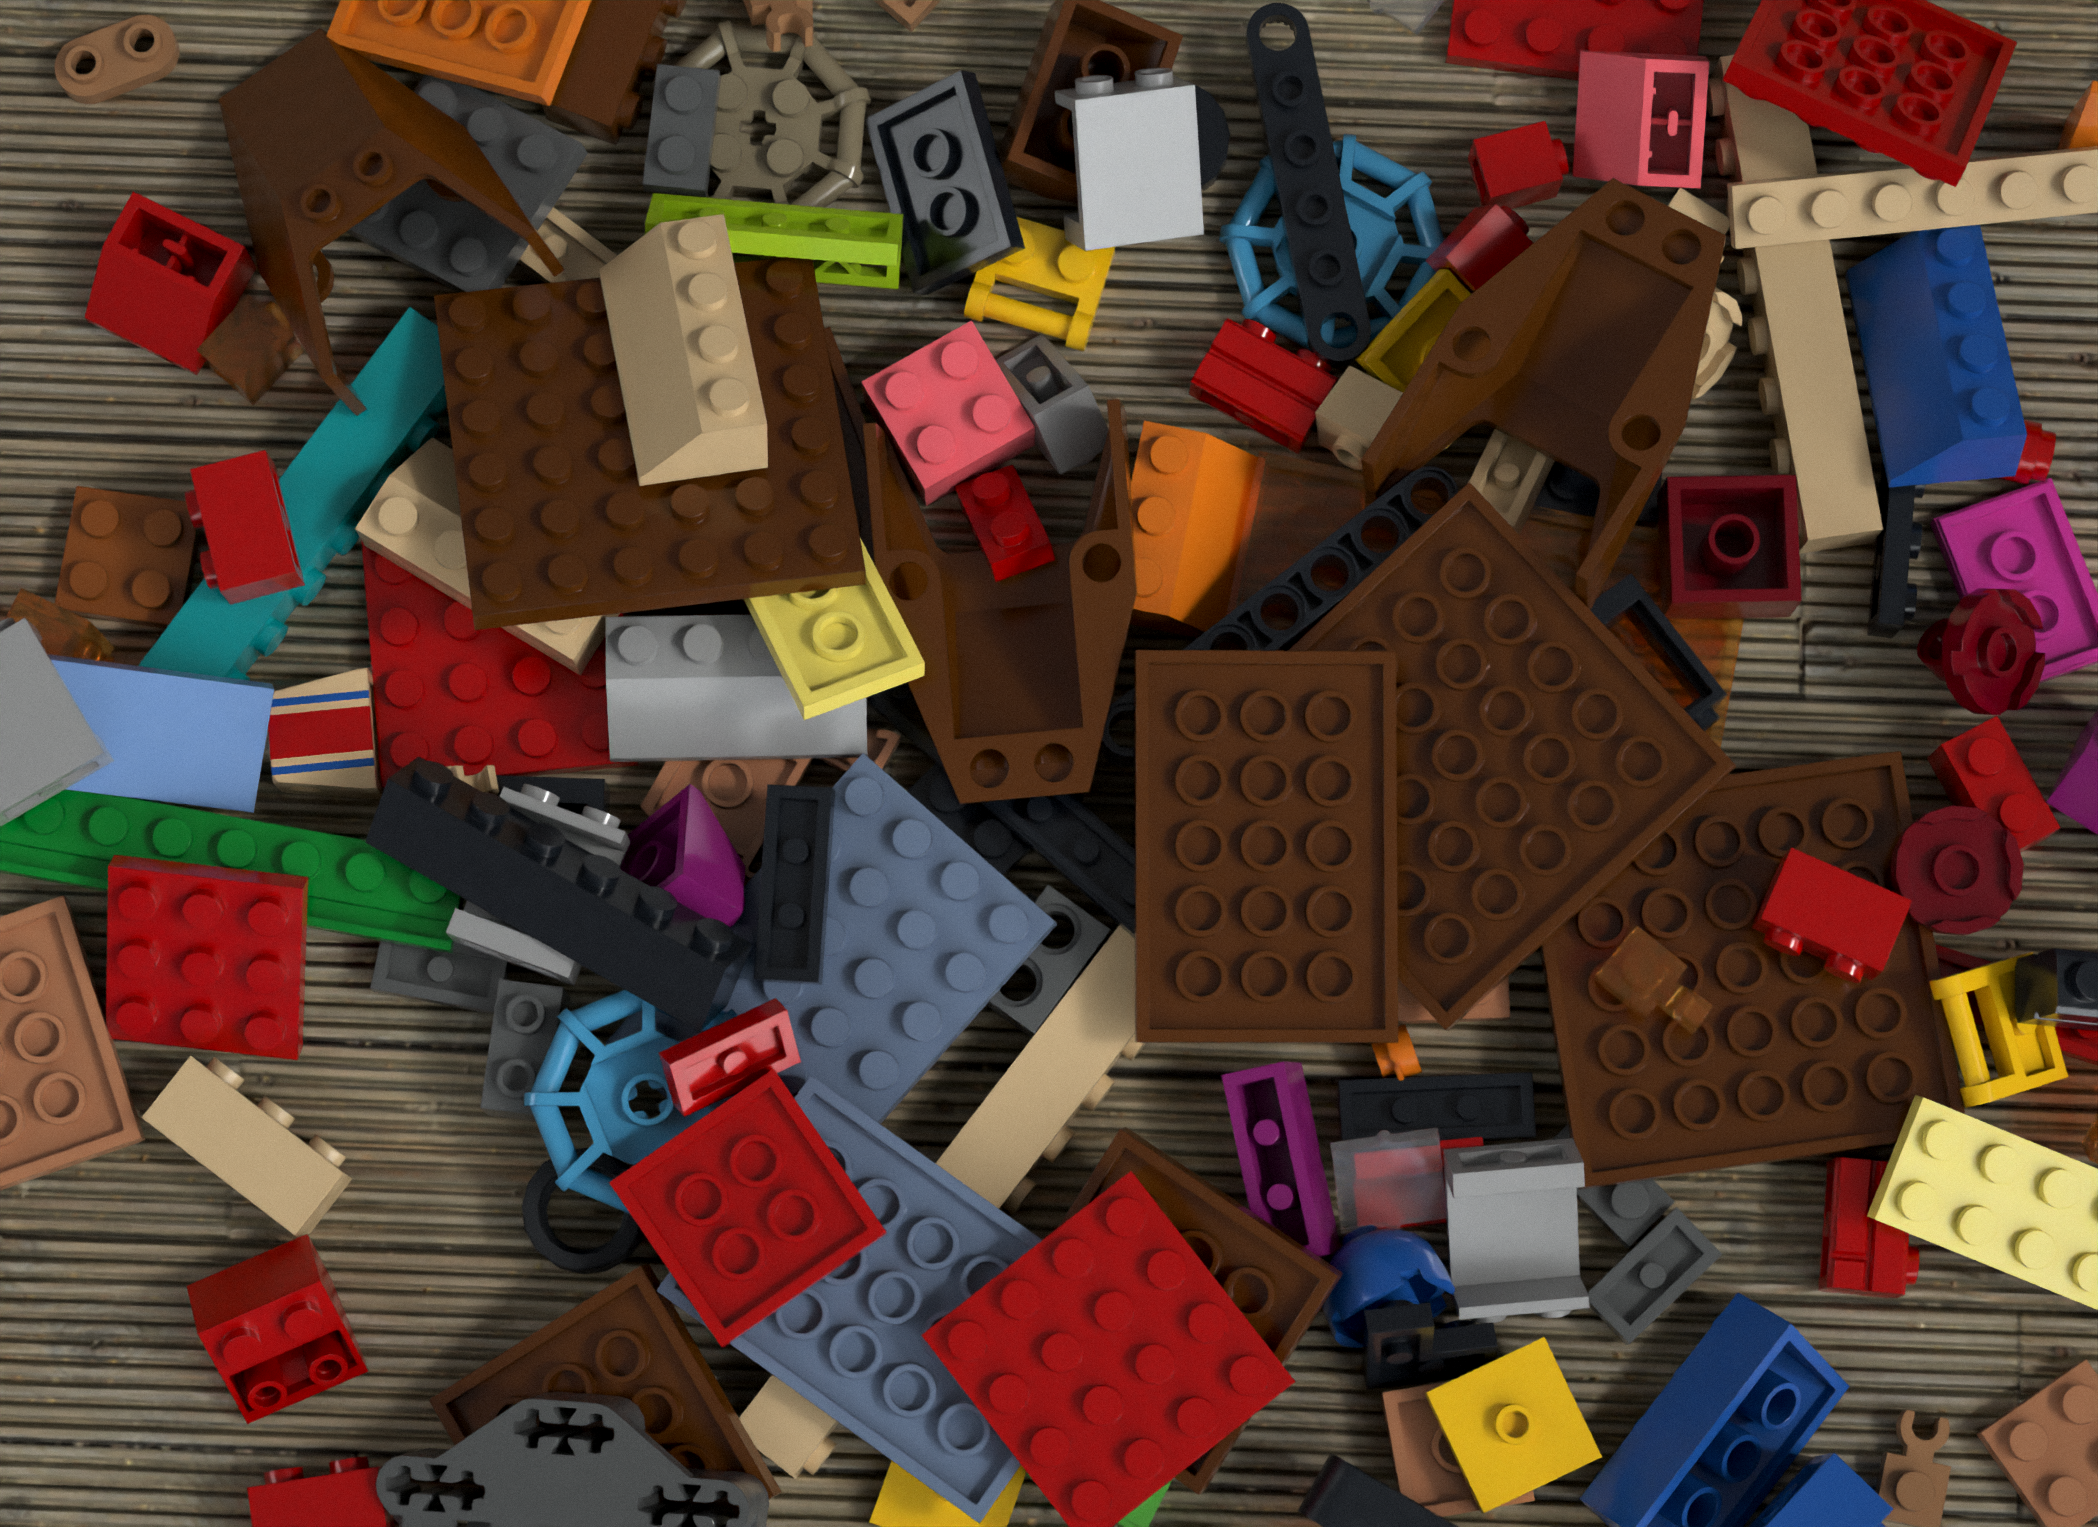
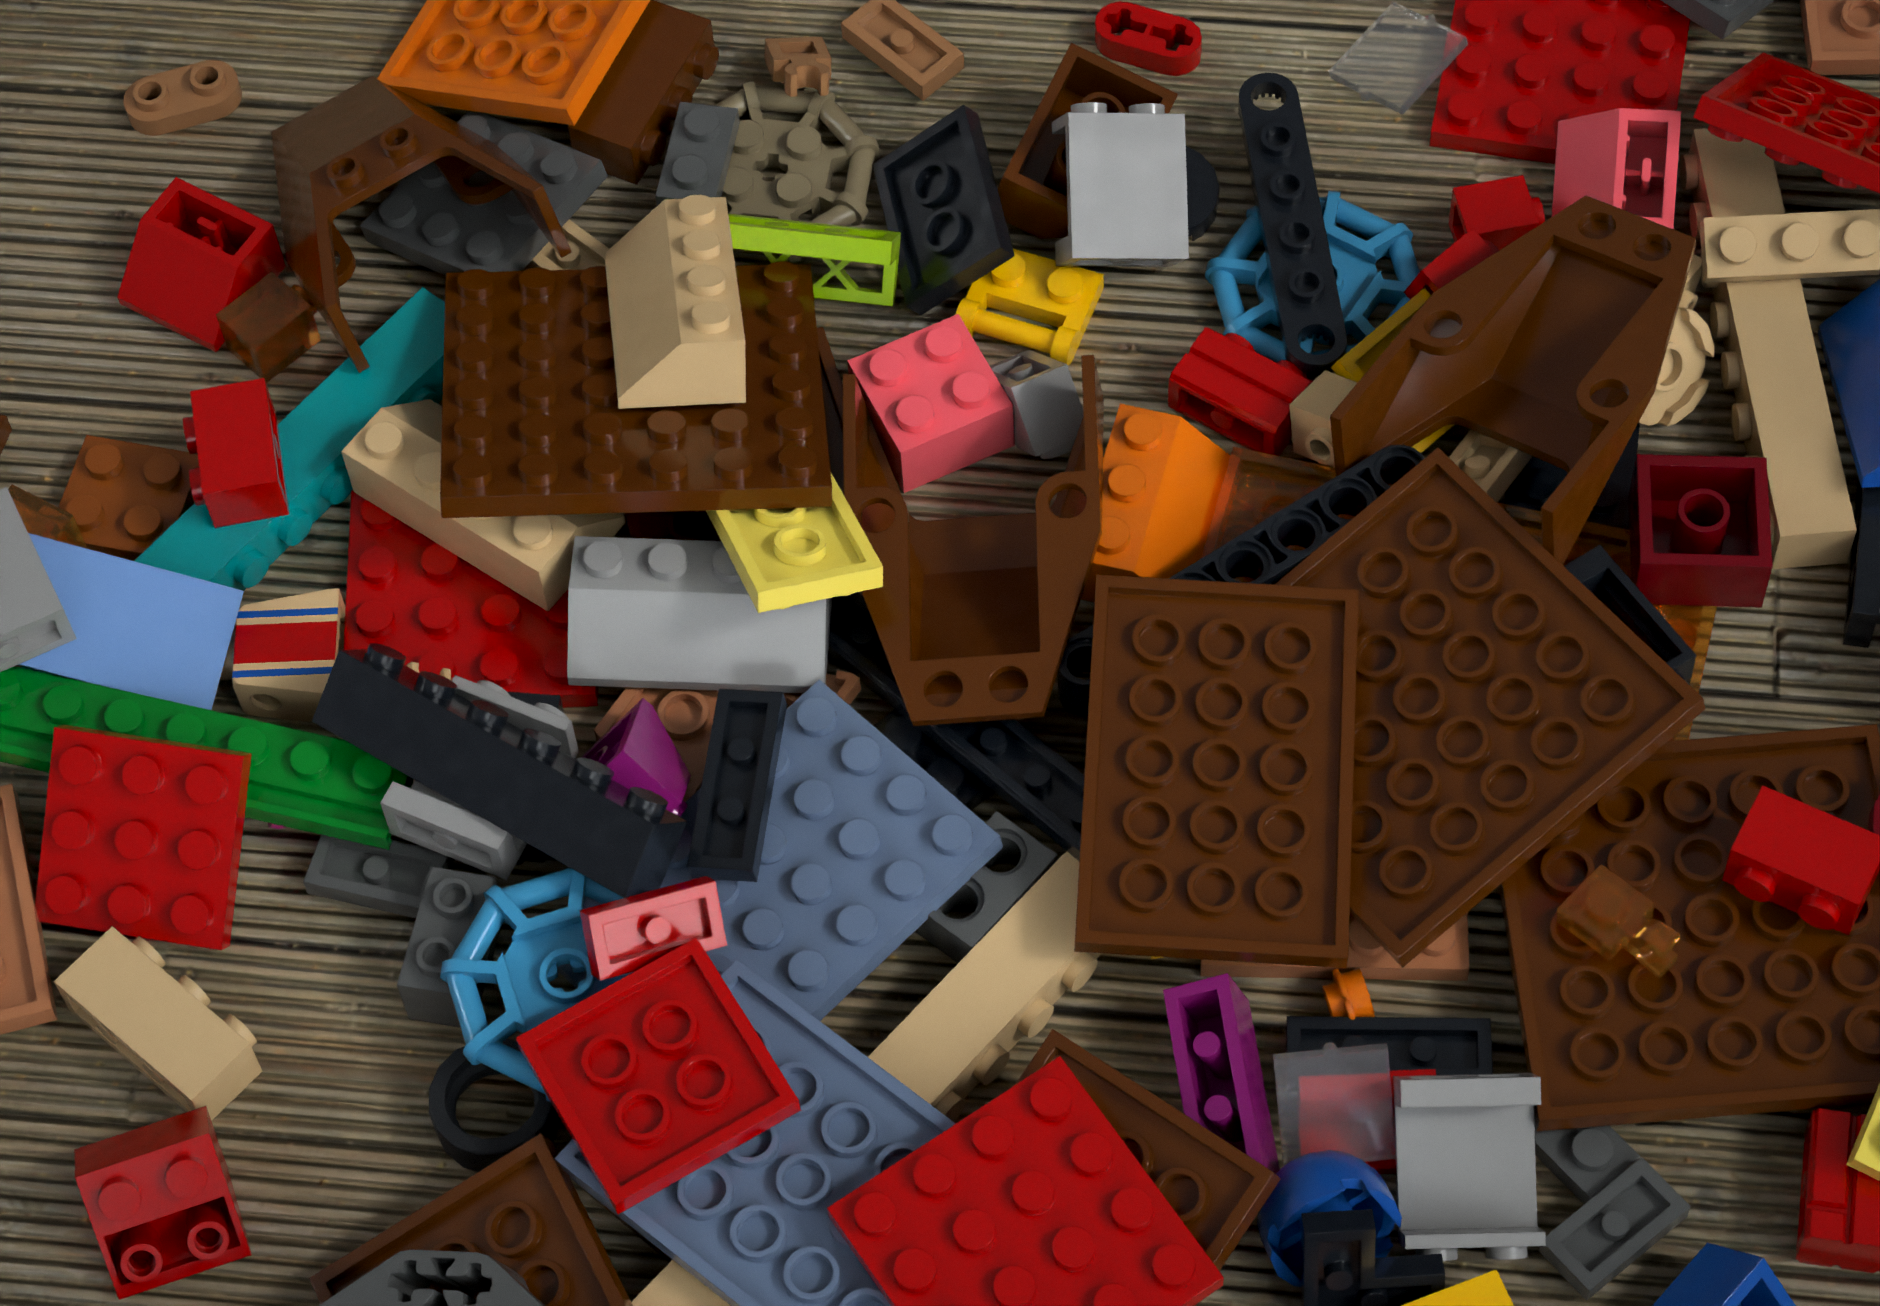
camera: 10 degrees right, 20 degrees down
(1004, 523) = (977, 493): red plate -> none

